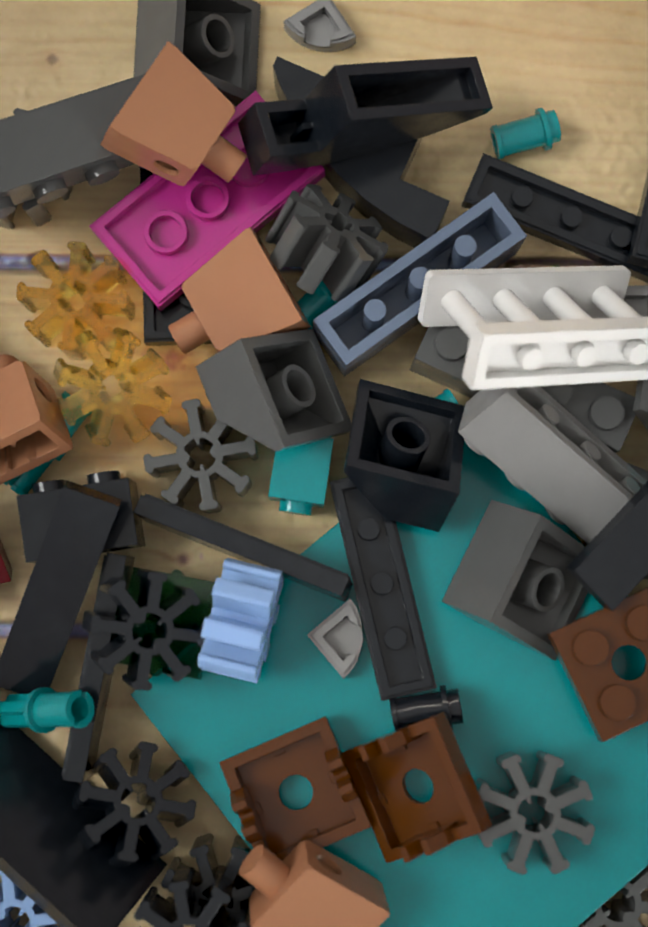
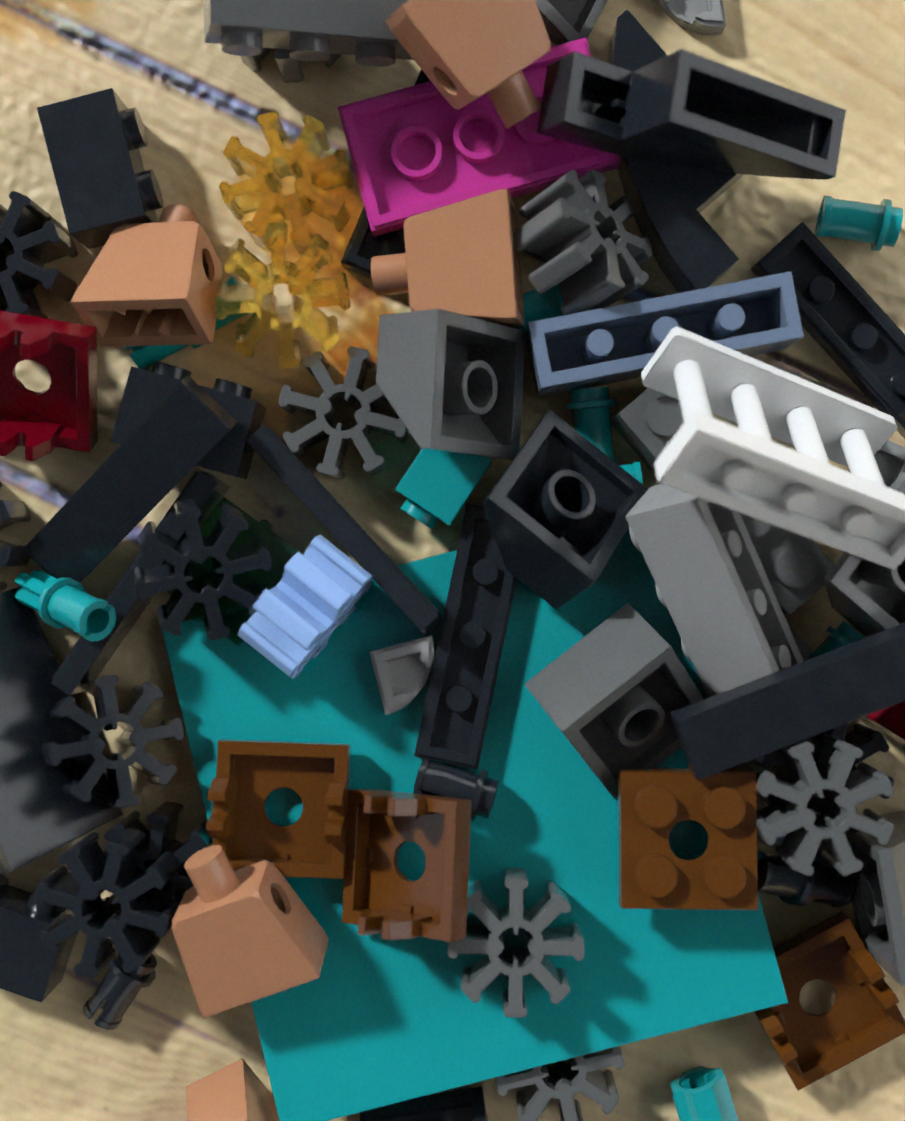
camera: 30 degrees right, 5 degrees up
(394, 369) = (593, 417): none -> teal pin

